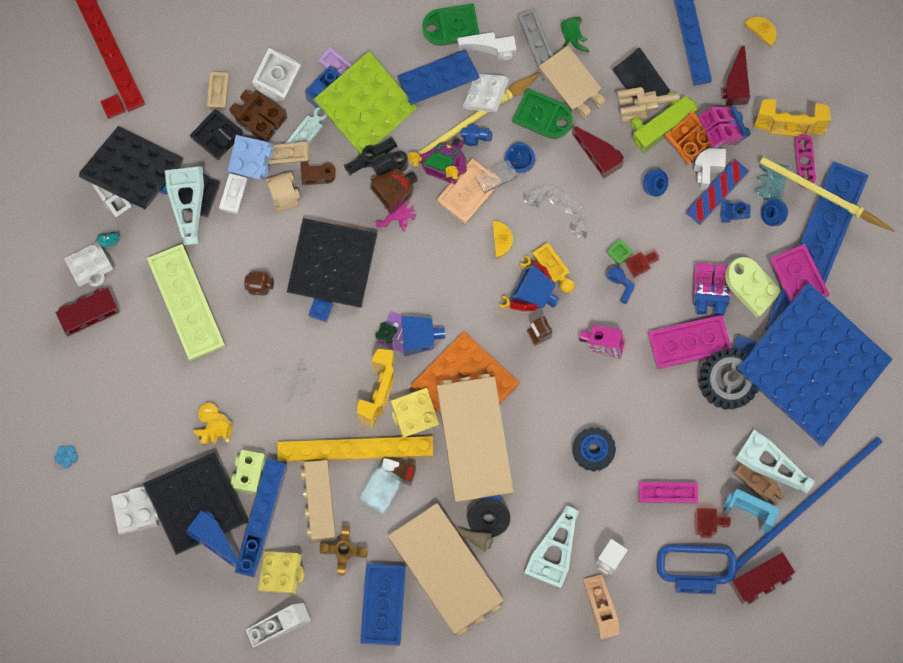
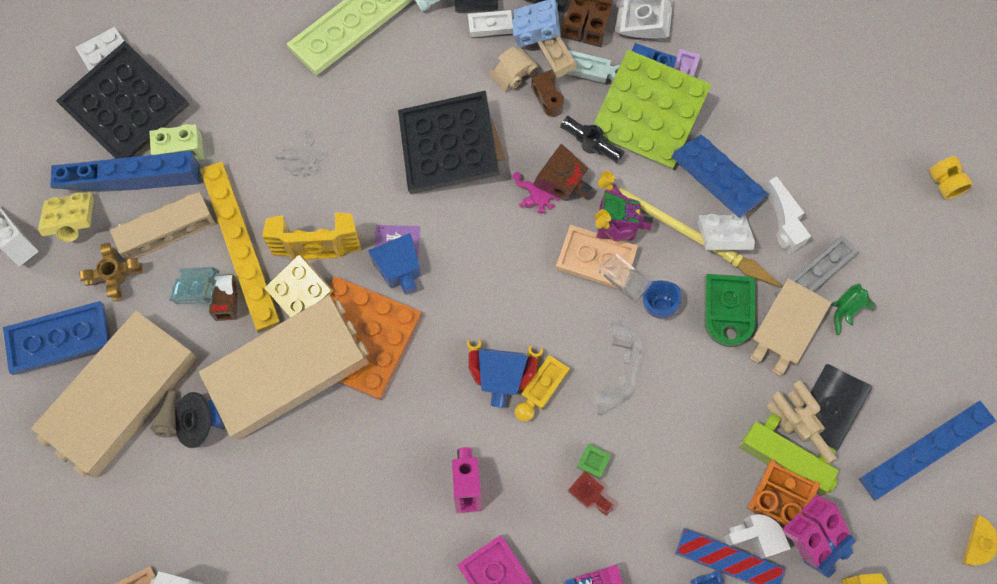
camera: 70 degrees right, 5 degrees down
(209, 534) = (82, 125): blue slope -> none
(217, 425) = (221, 97): yellow animal -> none
(258, 283) = (397, 78): reddish brown head -> none
(320, 310) = (392, 153): blue plate -> none
(386, 163) = (586, 151): black piece -> none
(388, 338) = (387, 222): dark green plate -> none
(451, 24) = (792, 167): green plate -> none
(472, 135) = (668, 237): blue plate -> none
(502, 239) = (554, 316): yellow plate -> none
(539, 331) = (452, 398): reddish brown leg -> none
(547, 571) = (146, 511): light aqua plate -> none
(596, 437) = (306, 514): black wheel -> none
(600, 153) = (713, 392): dark red slope -> none
(617, 276) = (561, 468): blue plate -> none
(655, 182) = (704, 473): blue plate -> none
(737, 84) = (890, 533): dark red slope -> none

